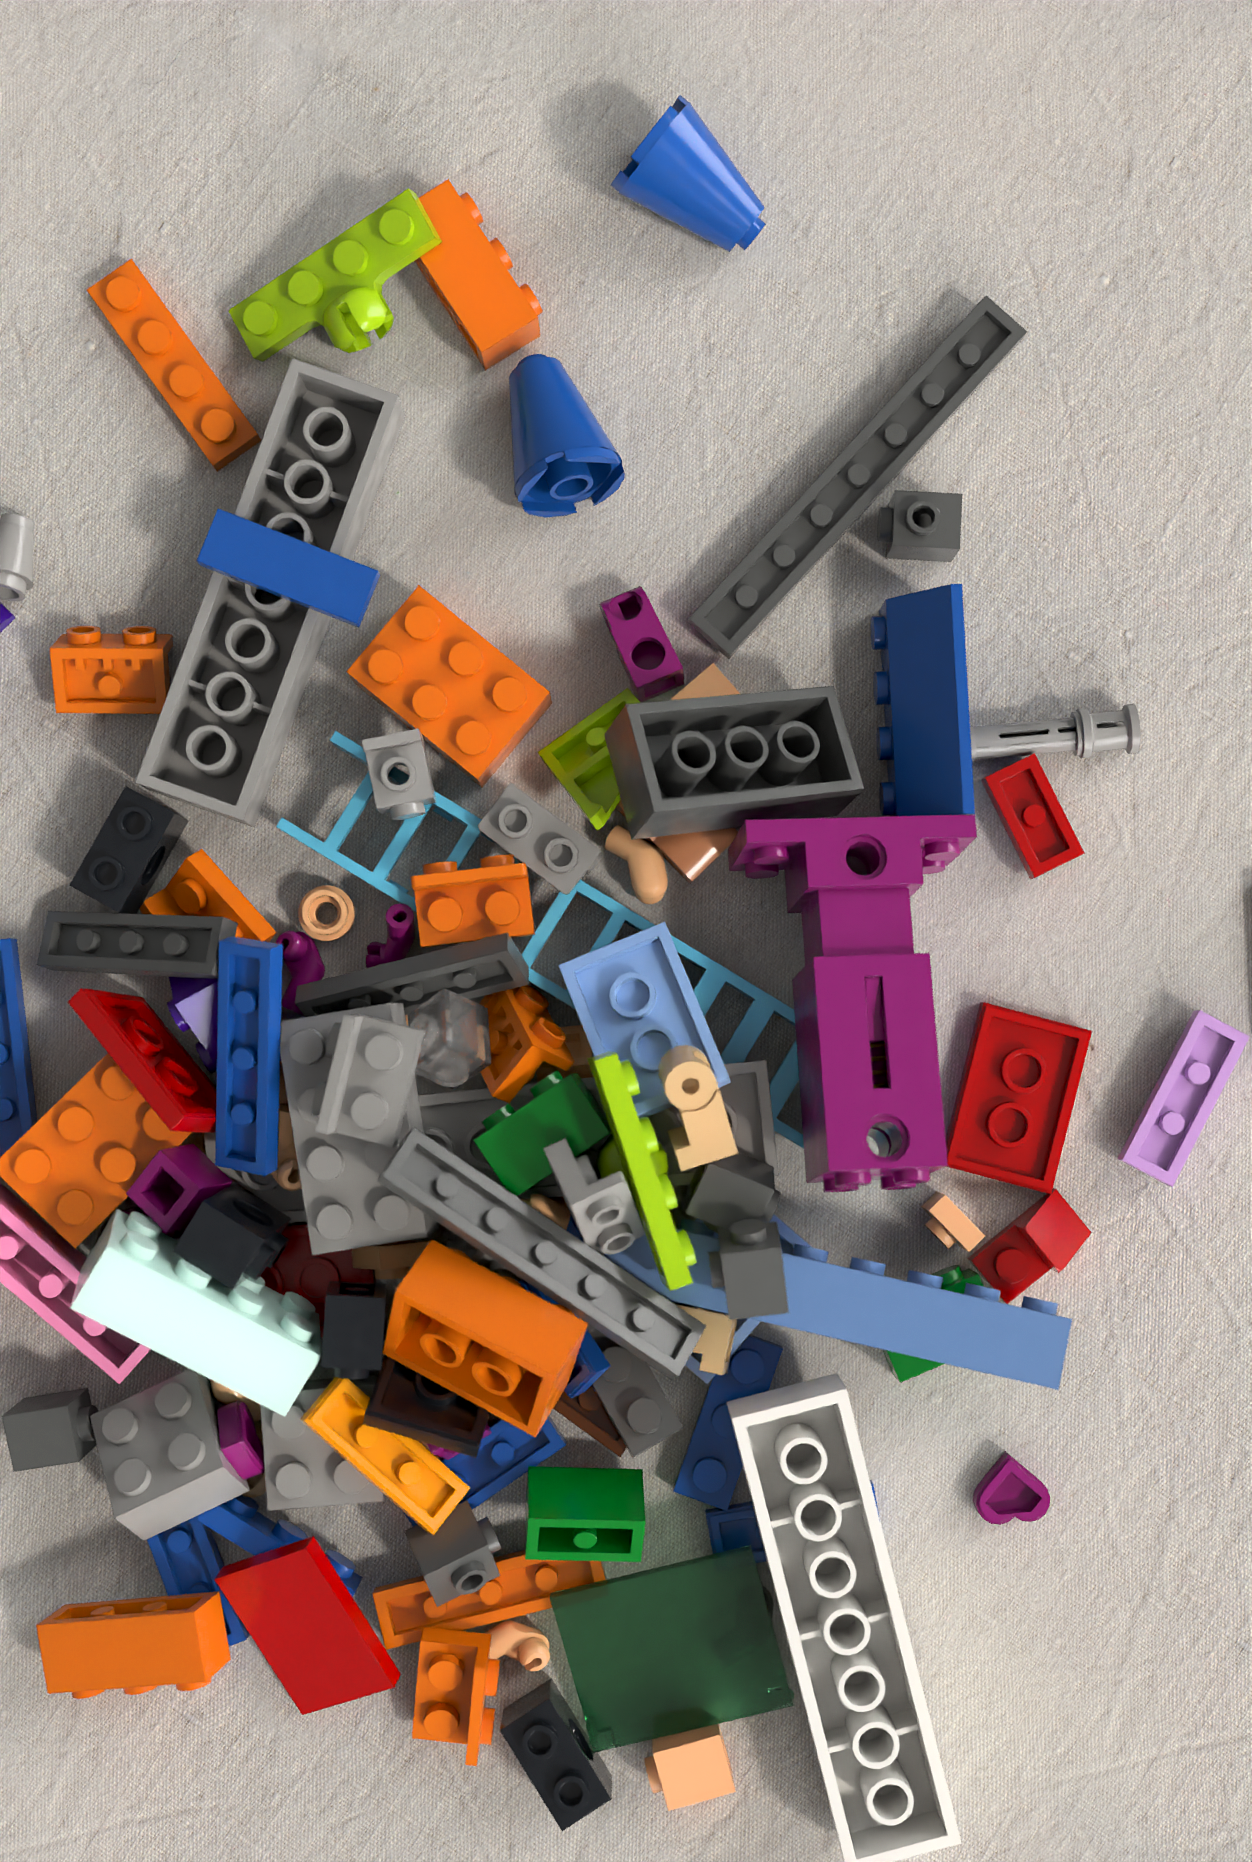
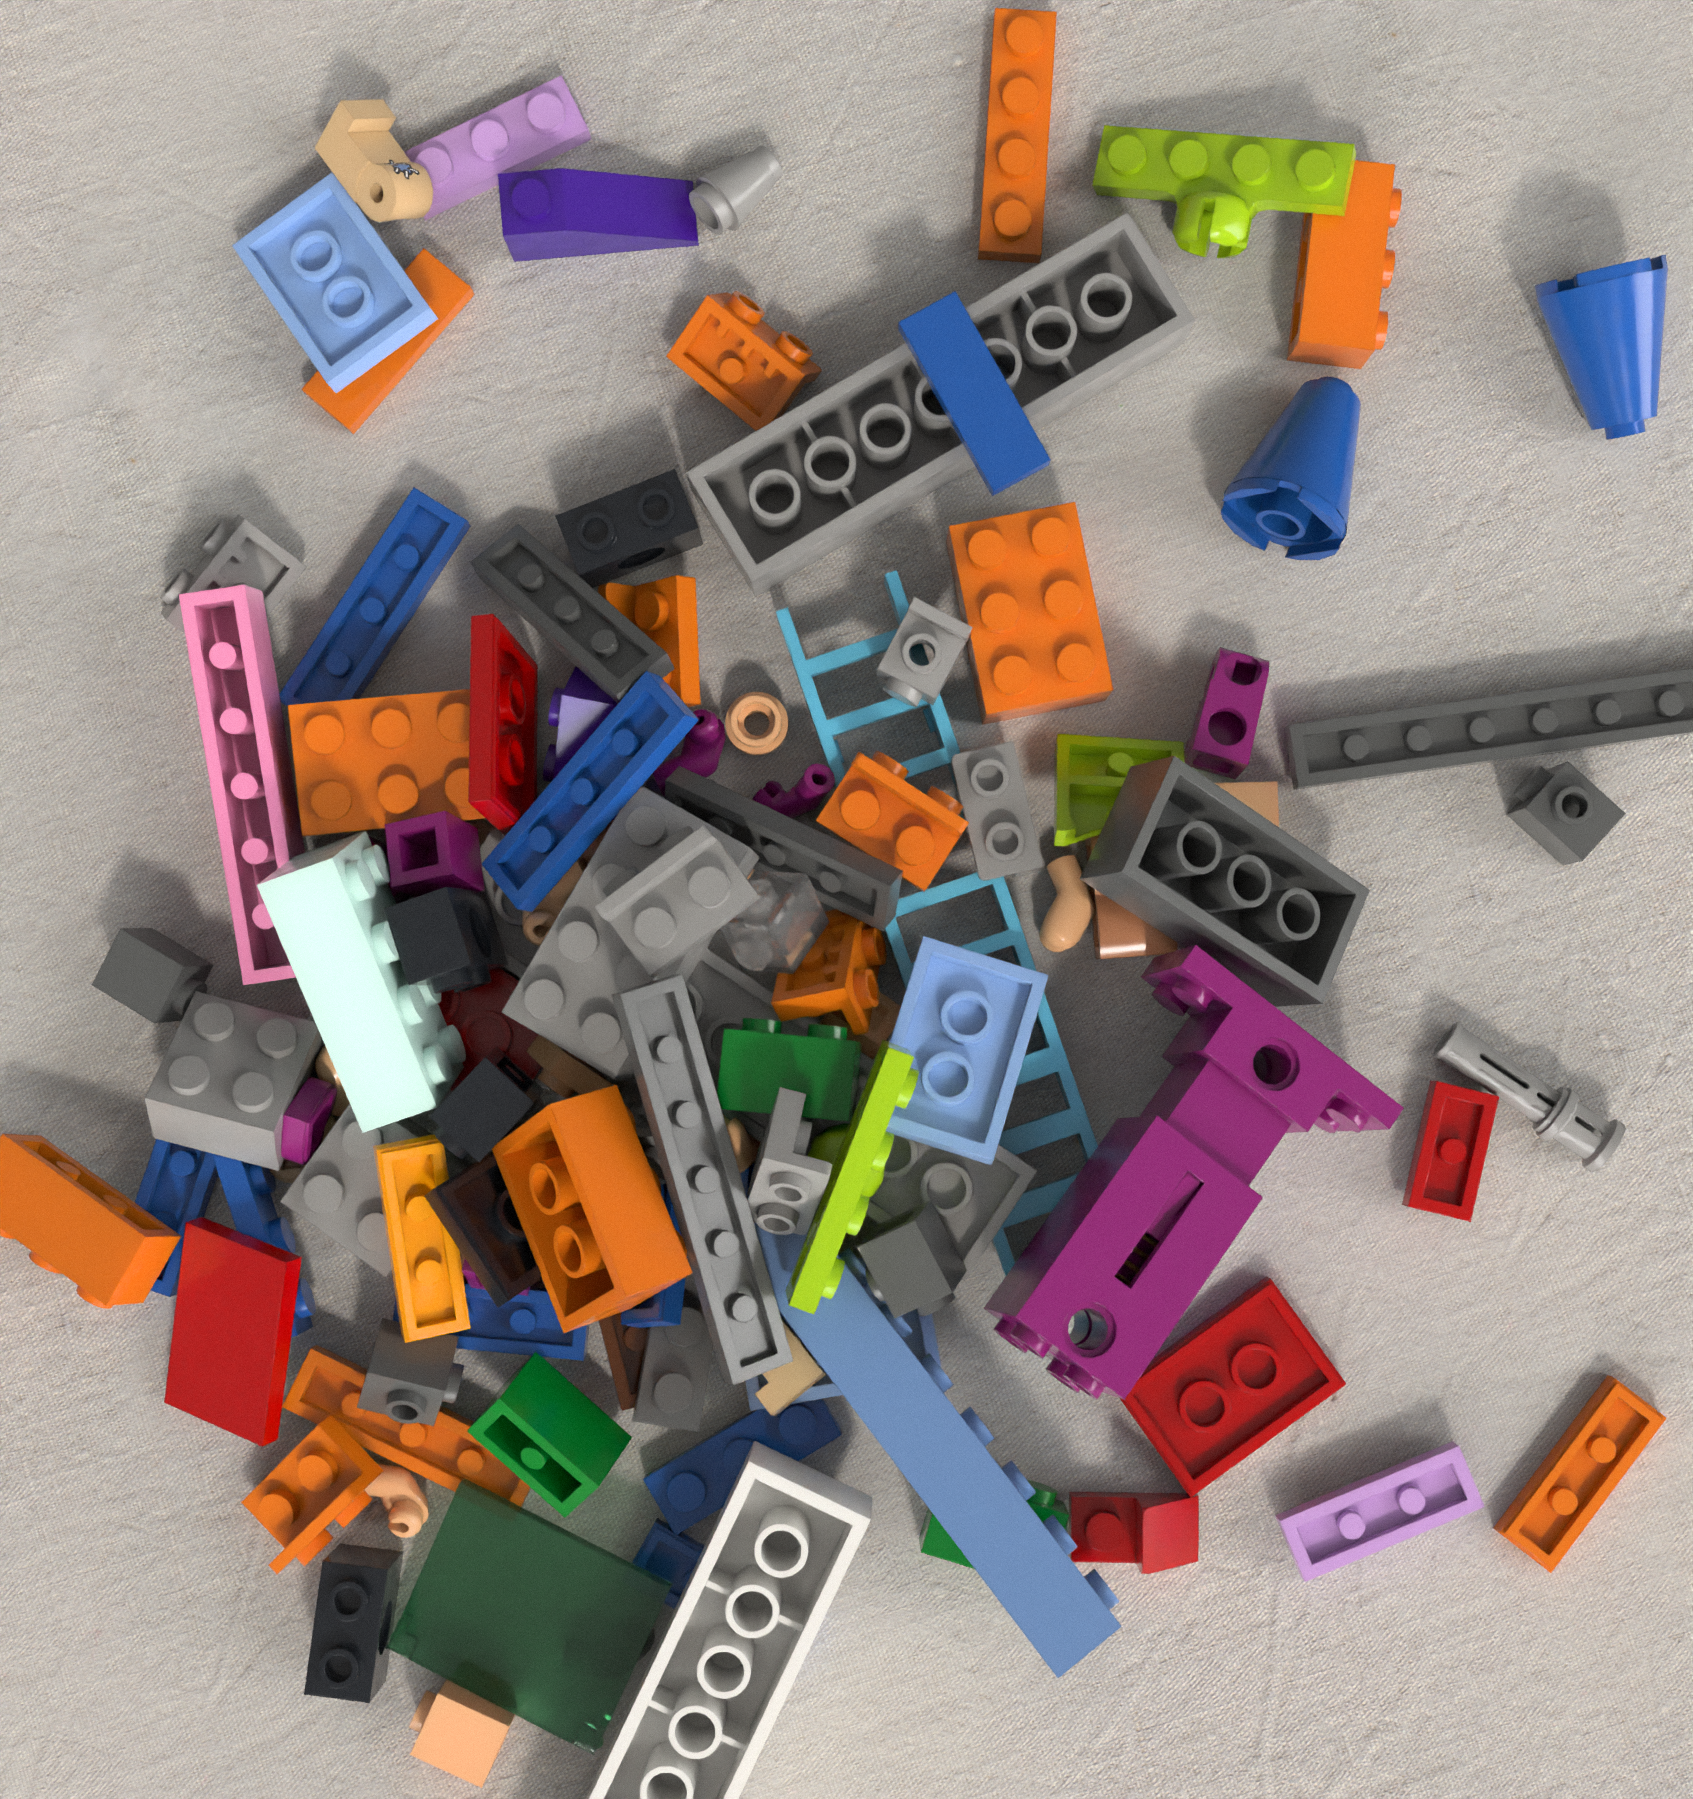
camera: 45 degrees right, 0 degrees up
(695, 1093) = (952, 1153): tan leg -> none
(750, 1269) = (873, 1344): dark grey brick -> none
(924, 704) = (1437, 971): blue slope -> none
(950, 1223) = (1080, 1449): light nougat plate -> none
(1010, 1492) = (937, 1728): magenta tile -> none

